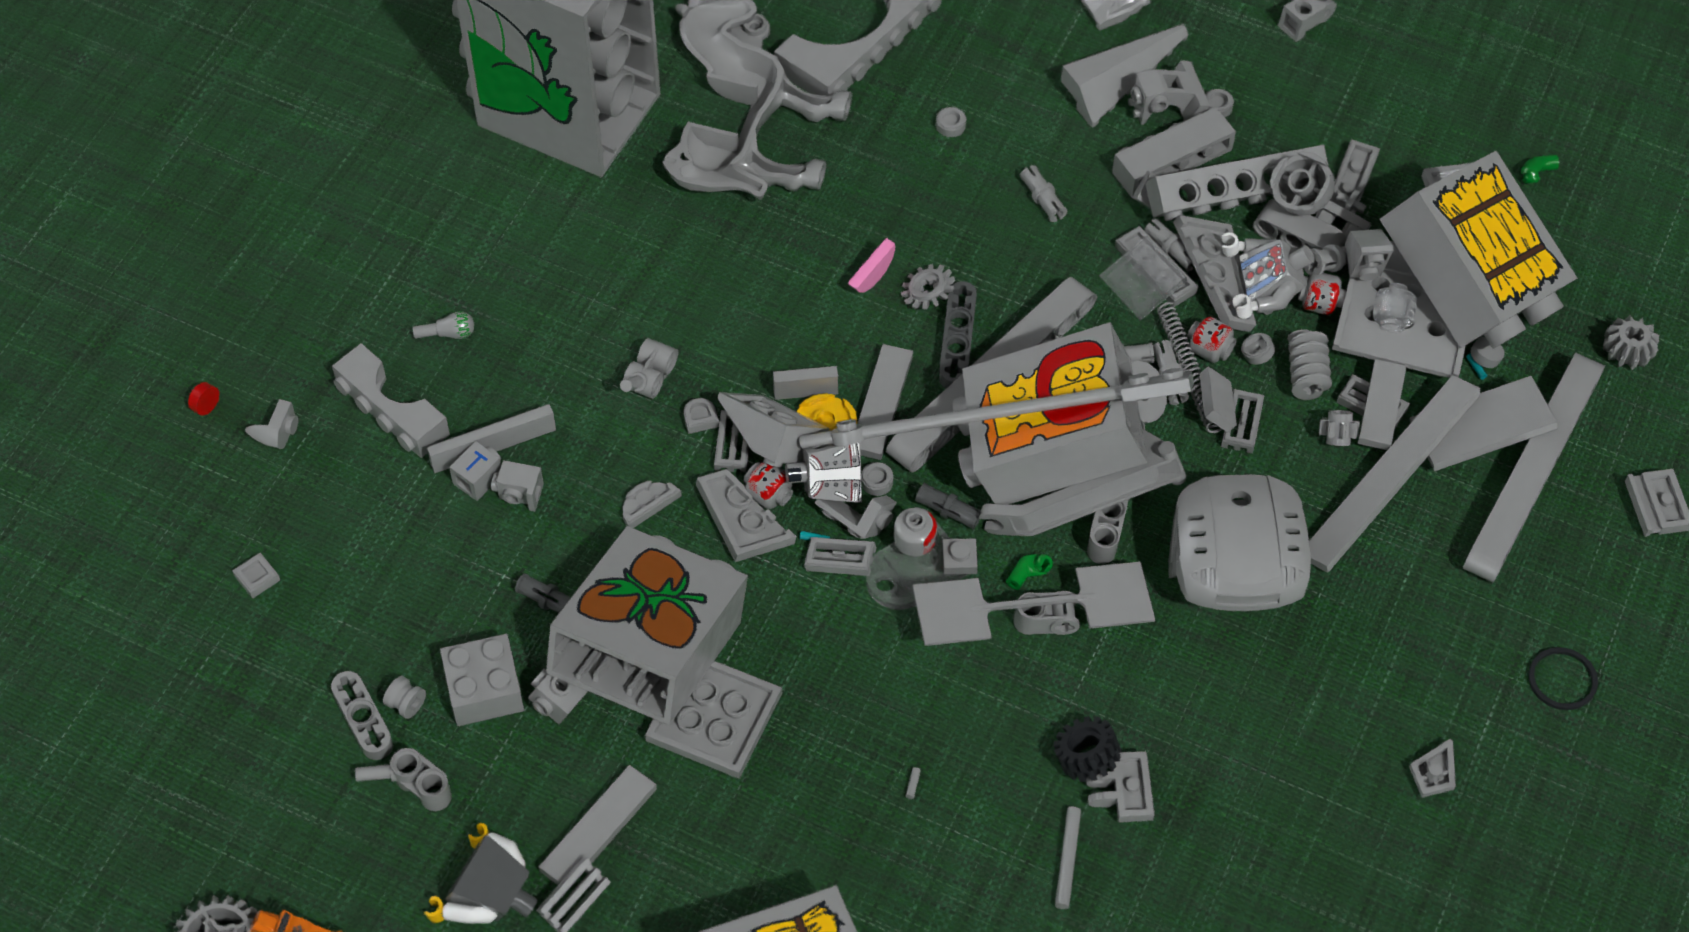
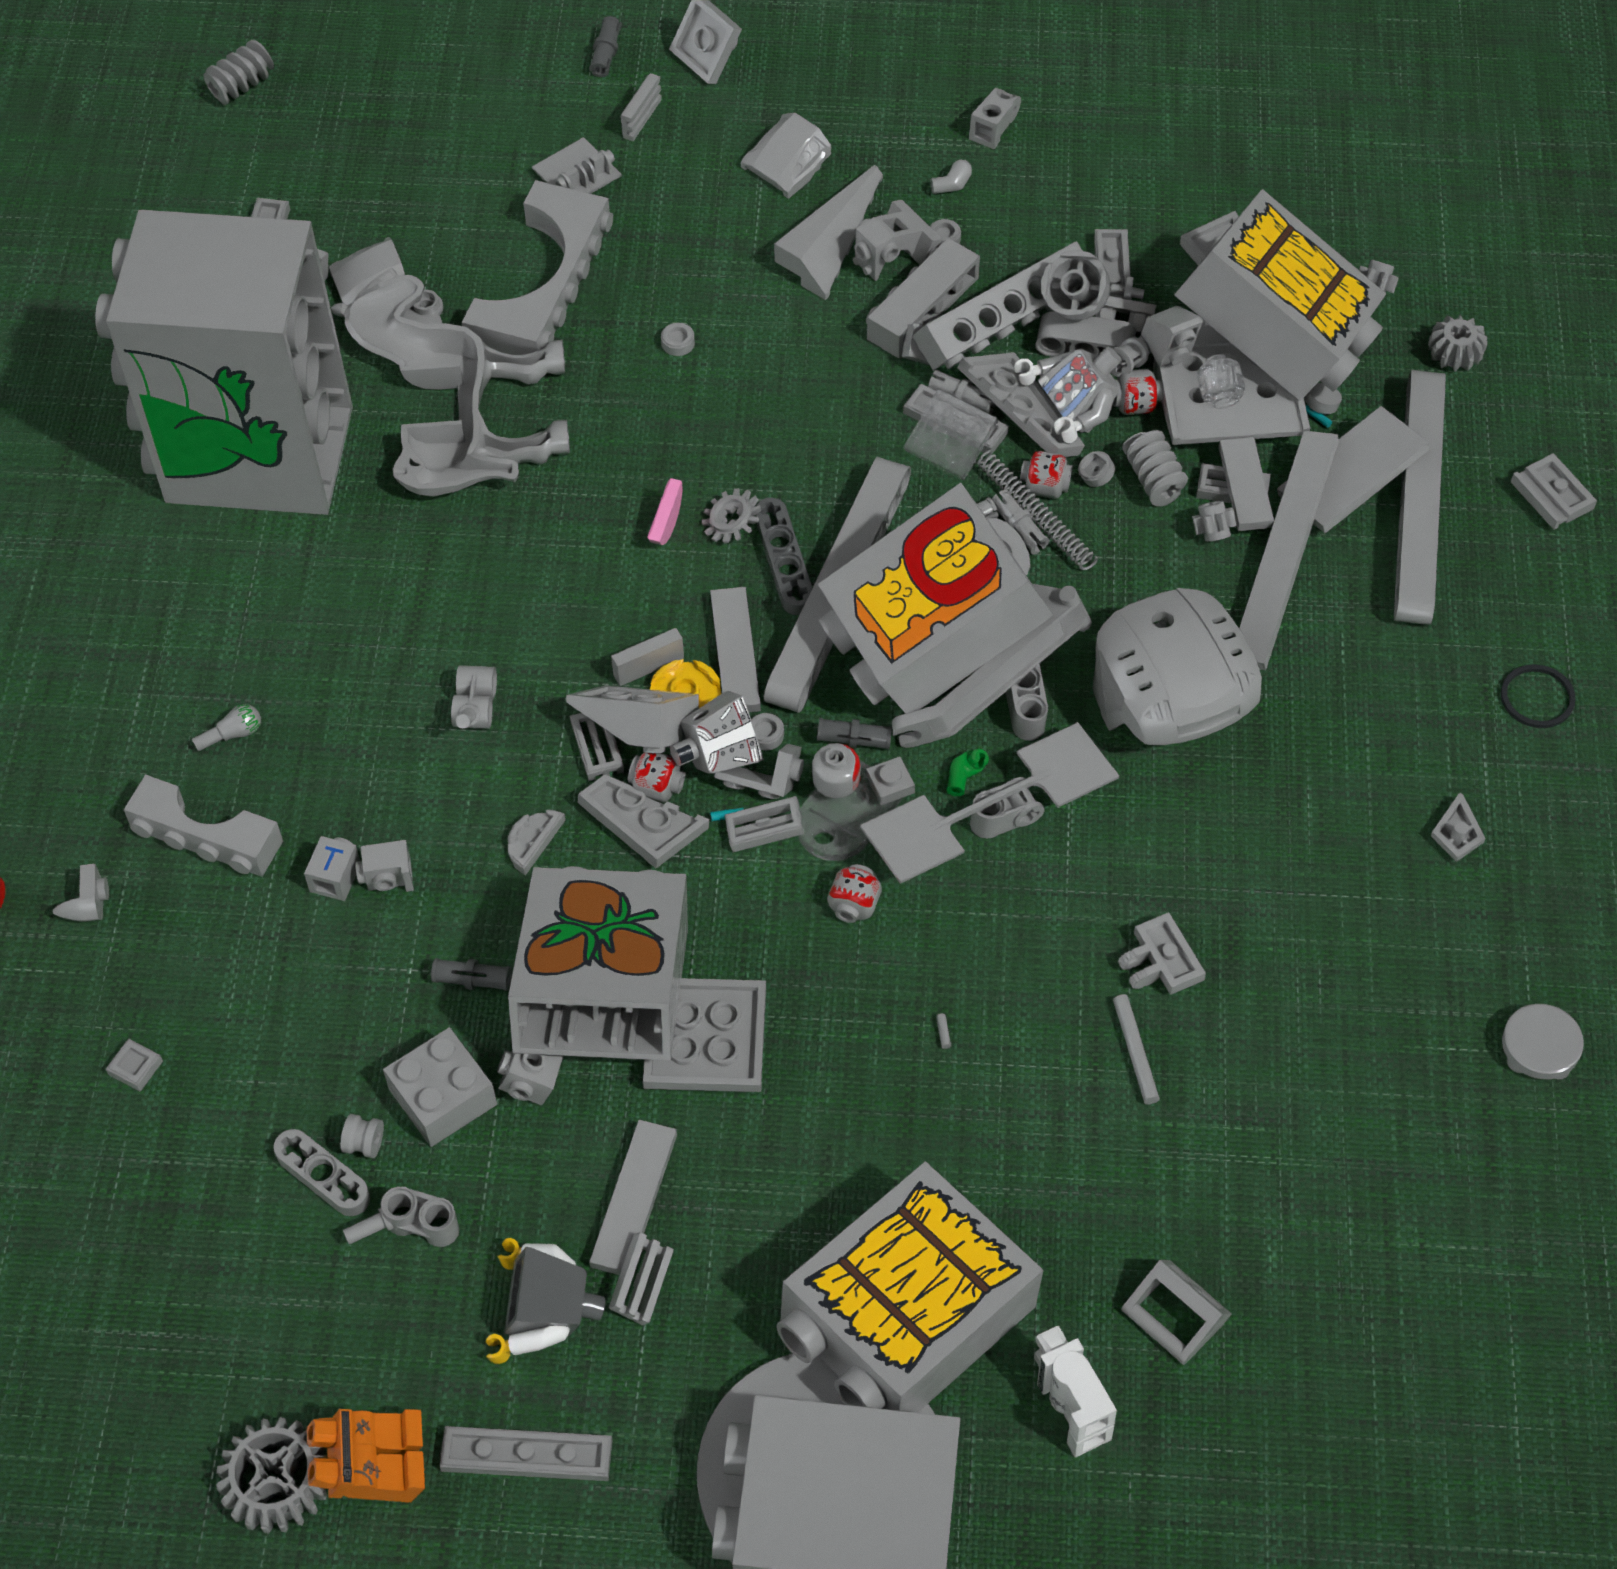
camera: 20 degrees left, 0 degrees up
(497, 436) = (338, 823): light grey tile -> none
(700, 415) = (549, 729): light grey tile -> none
(888, 641) = (854, 893): none -> light grey head
(1043, 193) = (807, 382): light grey pin -> none
(1093, 761) = (1120, 943): black tyre -> none
(1136, 388) = (1023, 538): light grey bar -> none
(1217, 399) = (1081, 532): light grey tile -> none
(1238, 441) = (1116, 568): light grey tile -> none
(1248, 58) = (955, 180): none -> light grey arm
(1537, 164) = (1292, 195): green arm -> none
(1583, 261) = (1380, 275): none -> light grey gear

